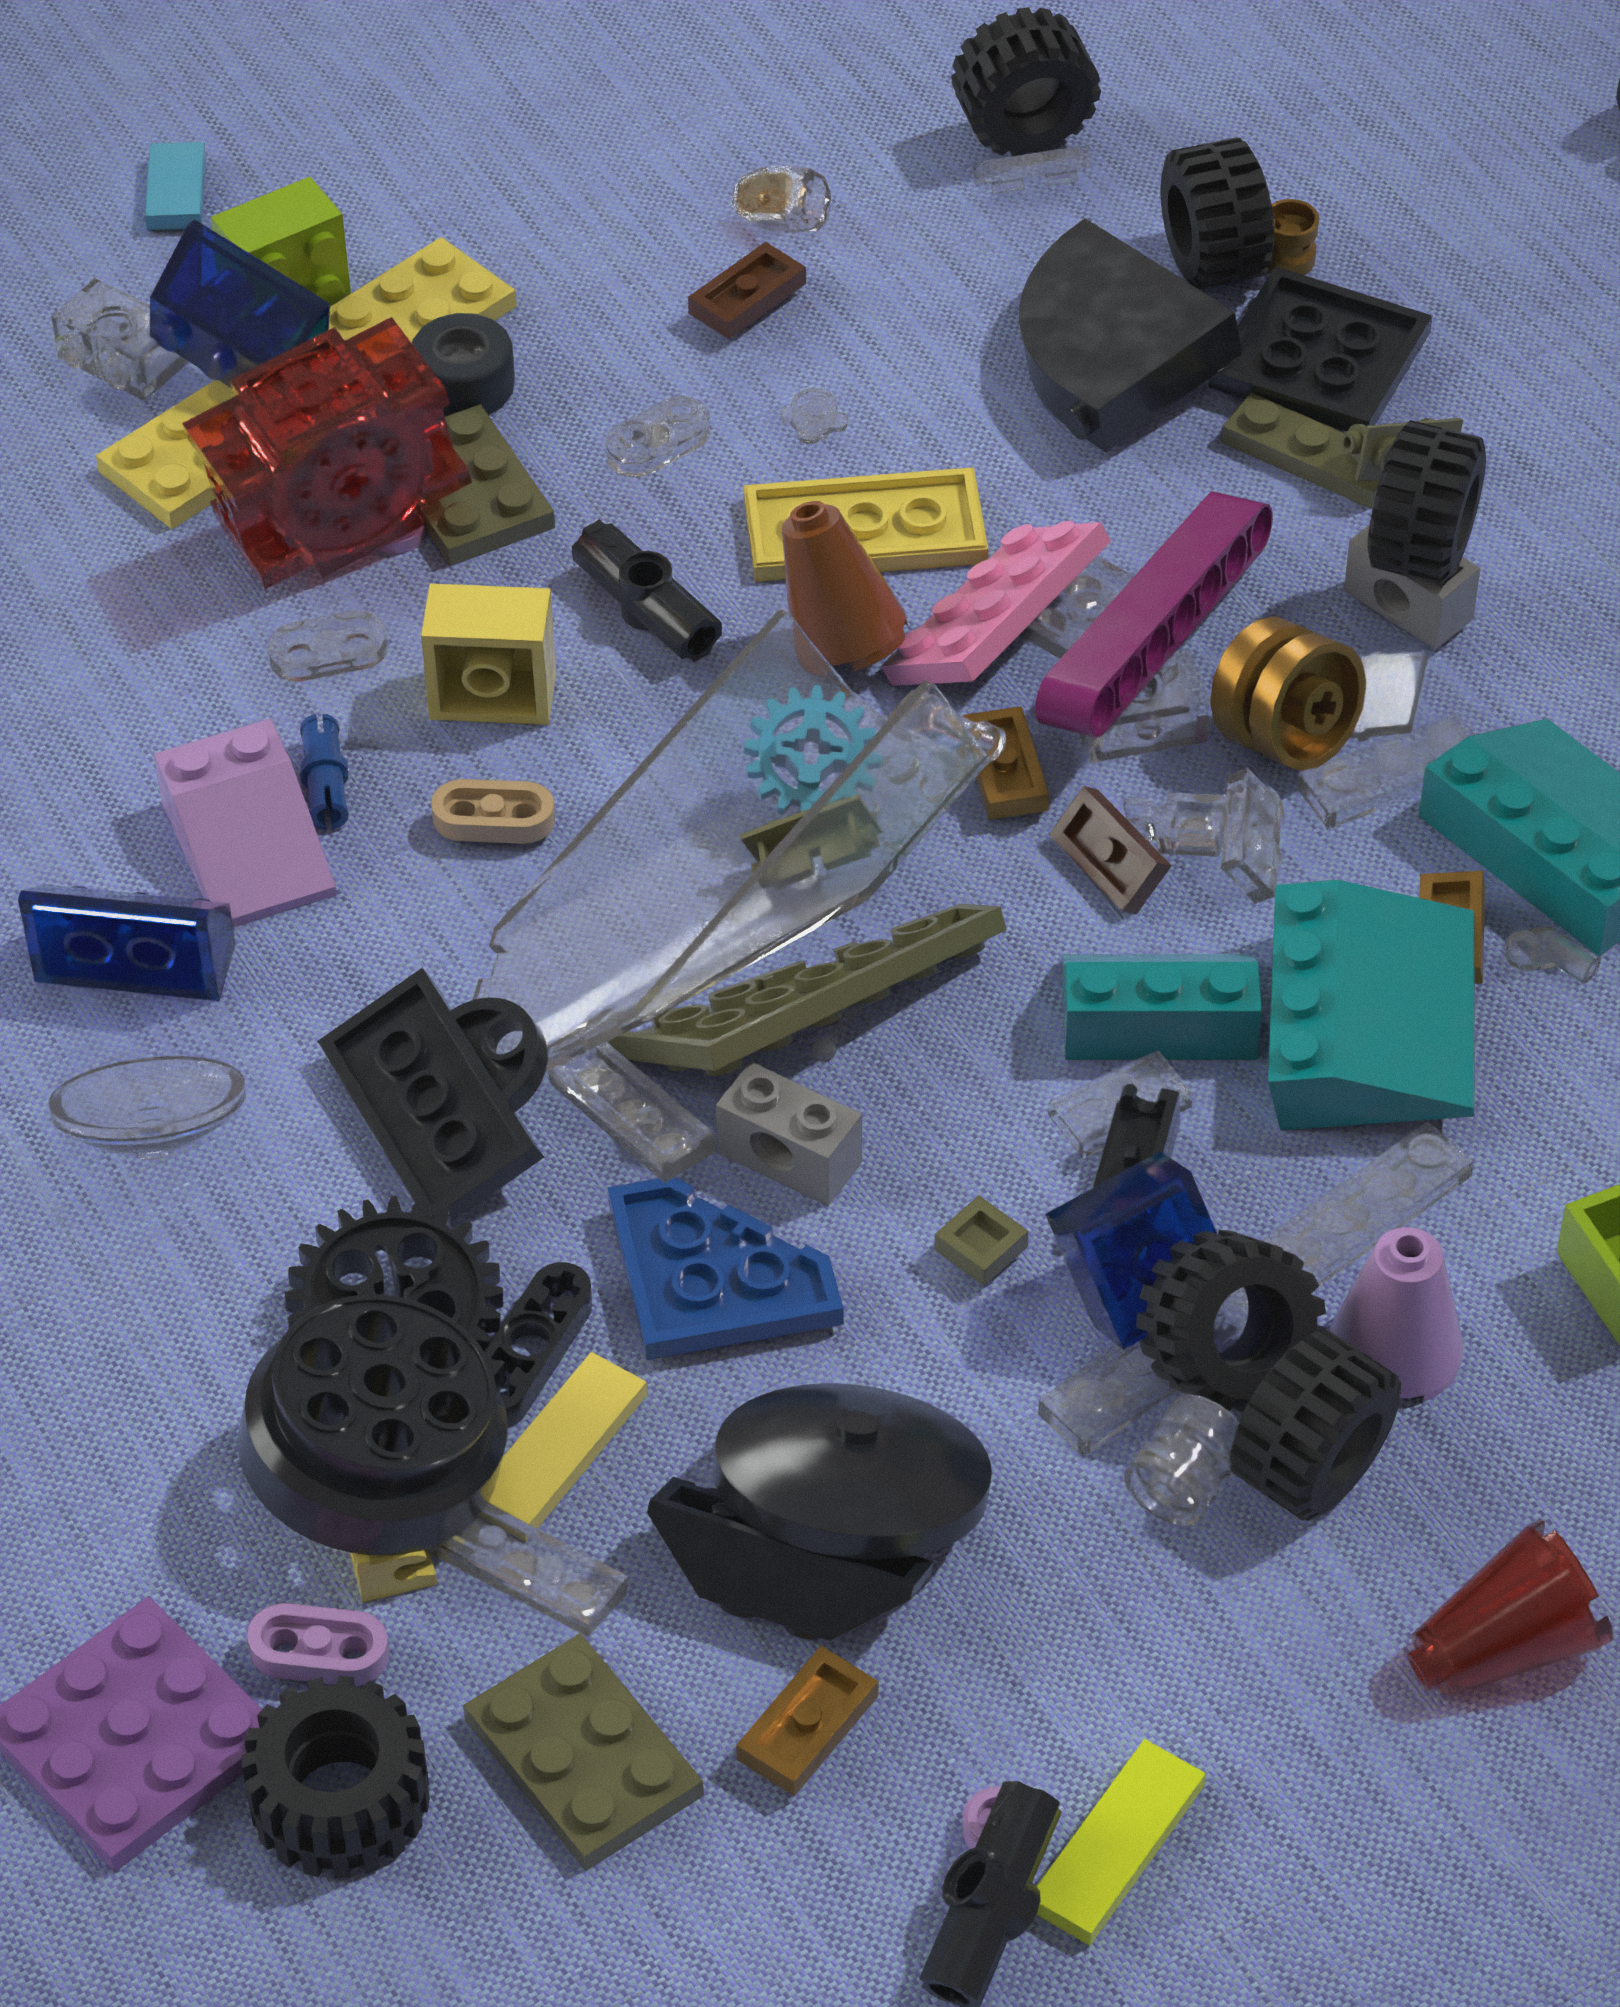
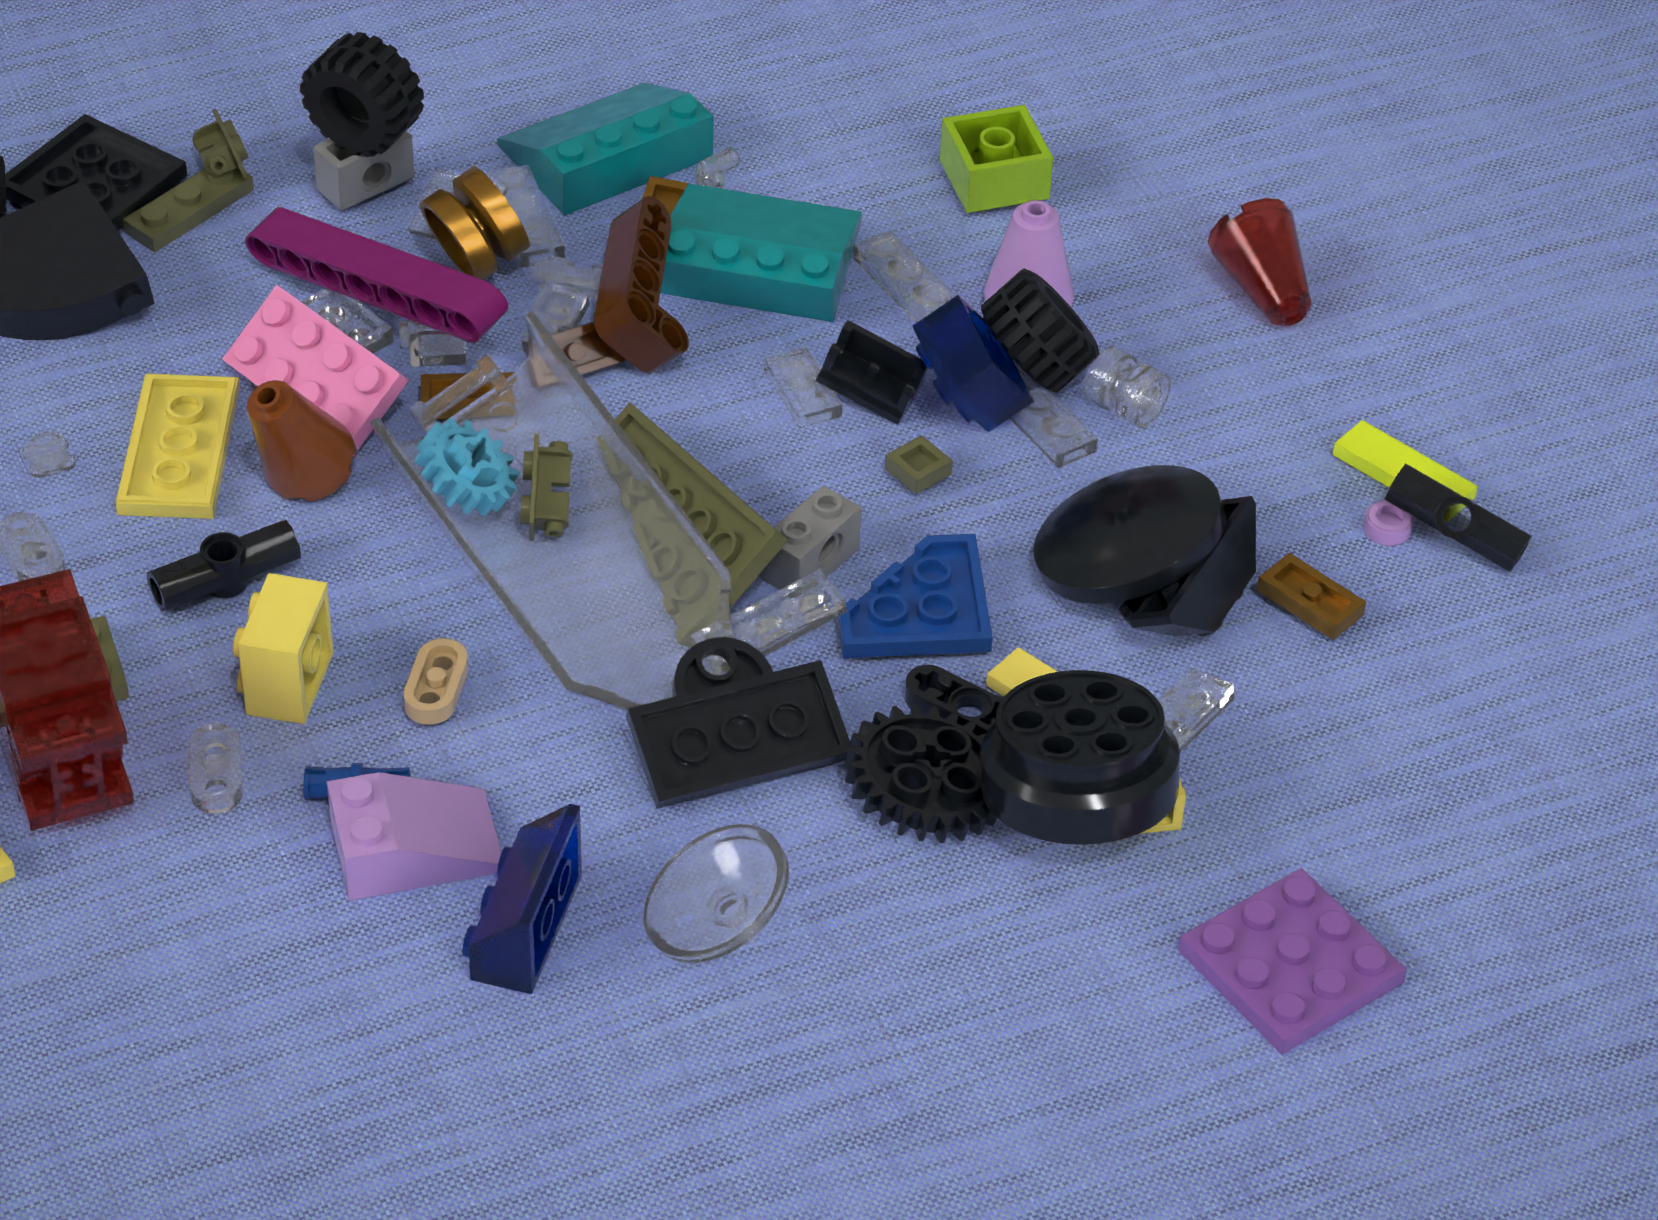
camera: 85 degrees left, 5 degrees down
(321, 1643) = (1230, 843): lavender plate -> none
(326, 1728) = (1361, 800): black tyre -> none
(583, 1751) = (1321, 716): olive plate -> none
(1161, 1003) = (724, 351): teal slope -> none
(1223, 872) = (630, 289): none -> reddish brown beam
(1315, 1424) = (1130, 303): black tyre -> none

